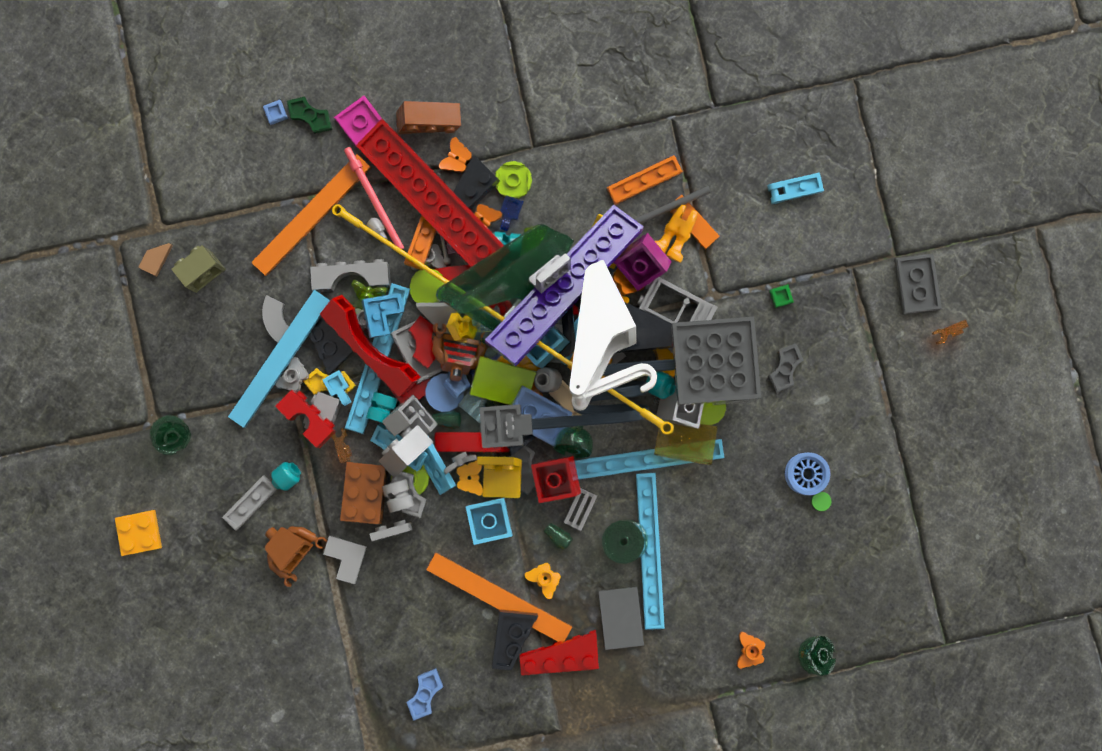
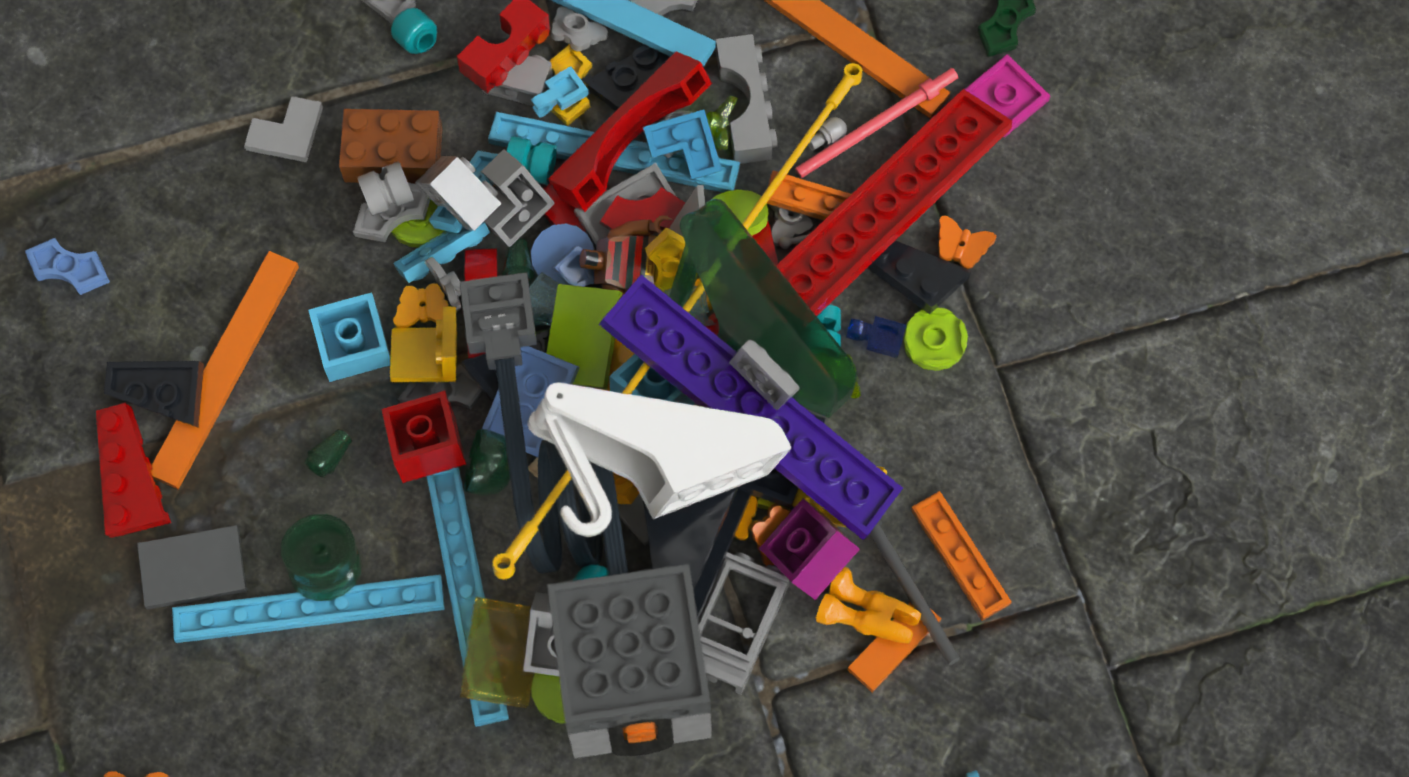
camera: 90 degrees right, 15 degrees down
(288, 548) = (297, 42): dark orange torso -> none
(343, 451) = (461, 108): clear orange plate -> none
(382, 532) = (329, 179): light grey plate -> none
(428, 117) = (1023, 192): wedge -> none
(489, 214) = (864, 295): orange animal -> none
(537, 575) = (245, 444): light orange animal -> none
(573, 524) = (351, 477): light grey tile -> none

